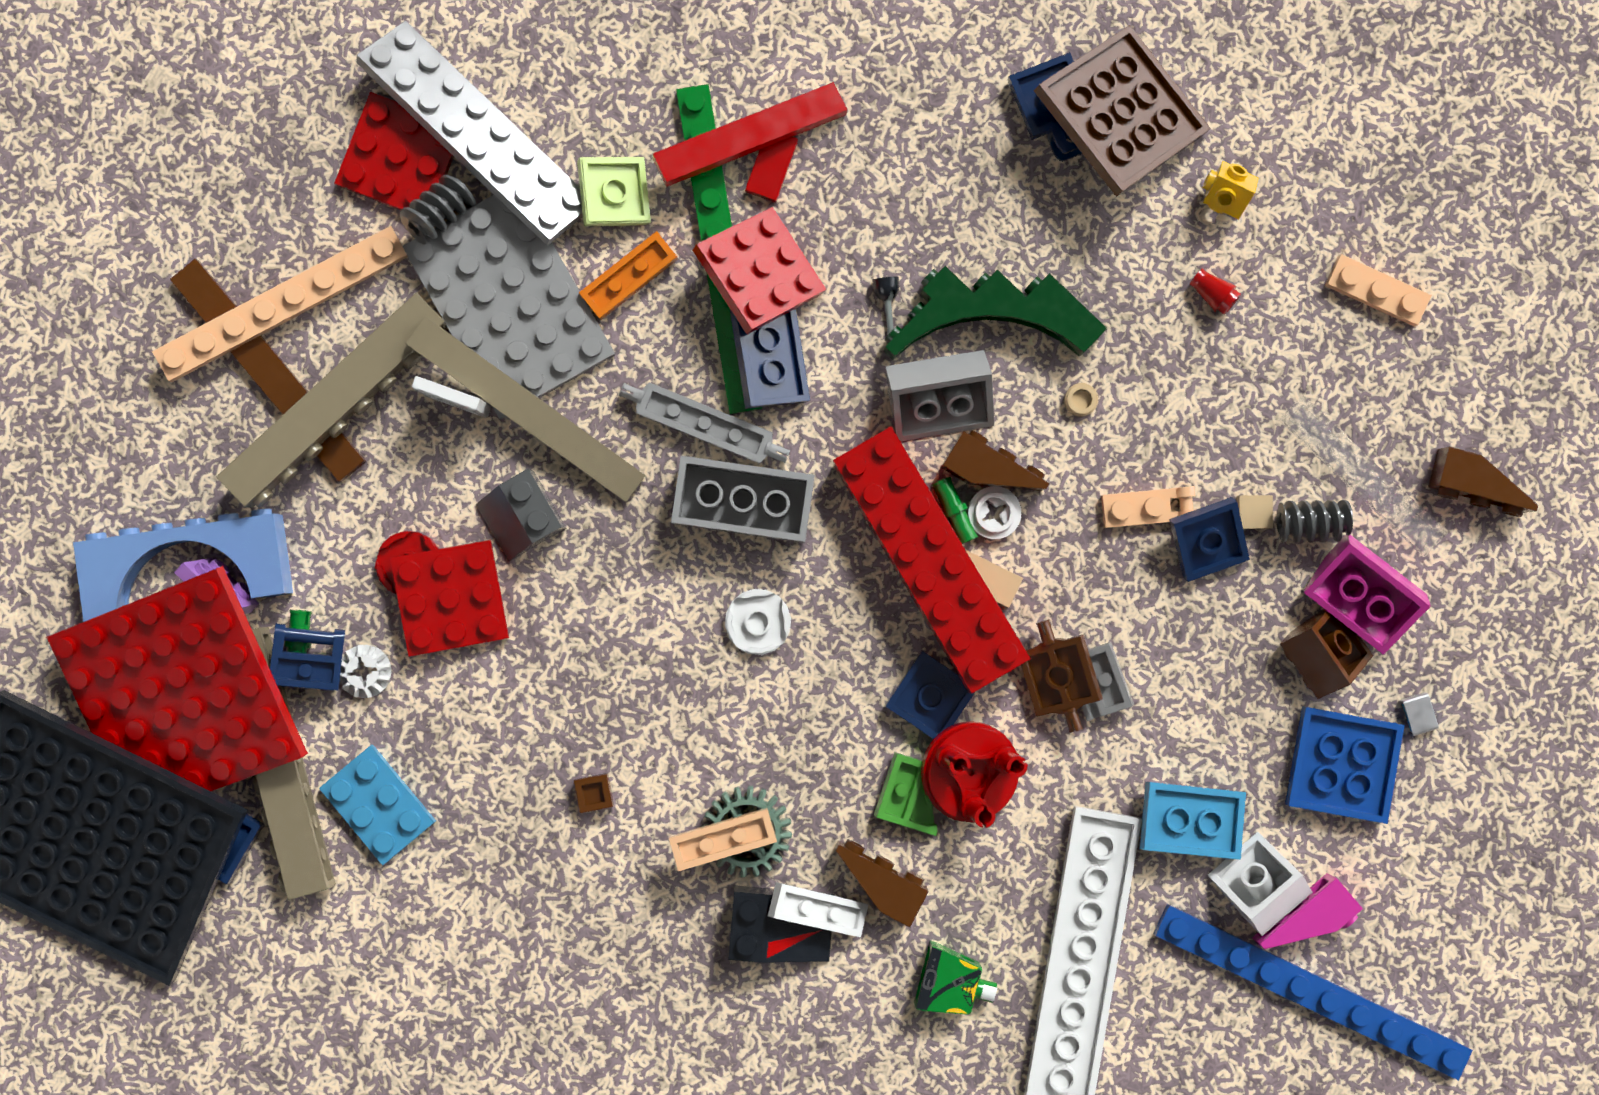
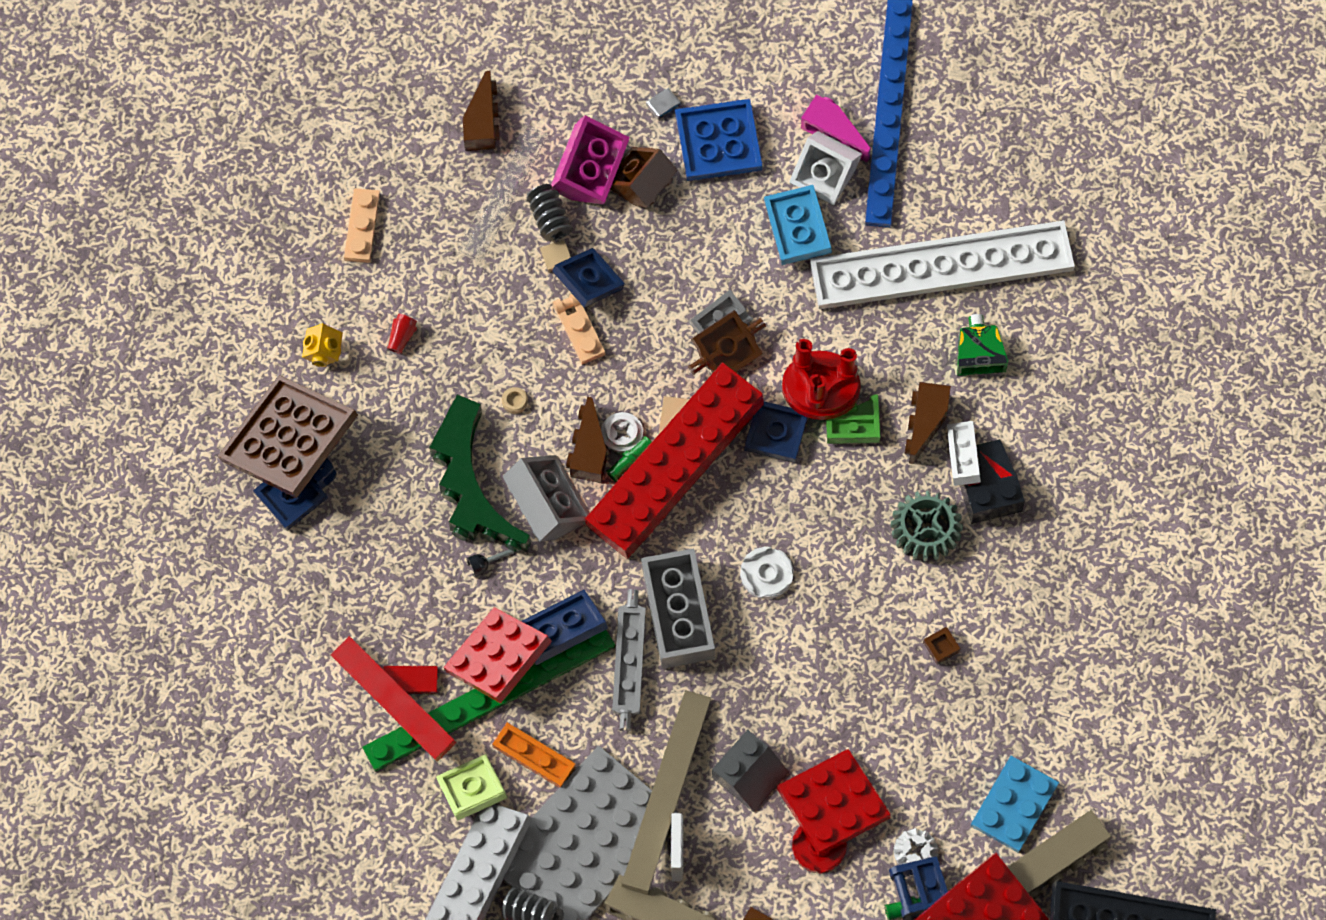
camera: 100 degrees left, 20 degrees down
(722, 839) = (937, 532): light nougat plate -> none

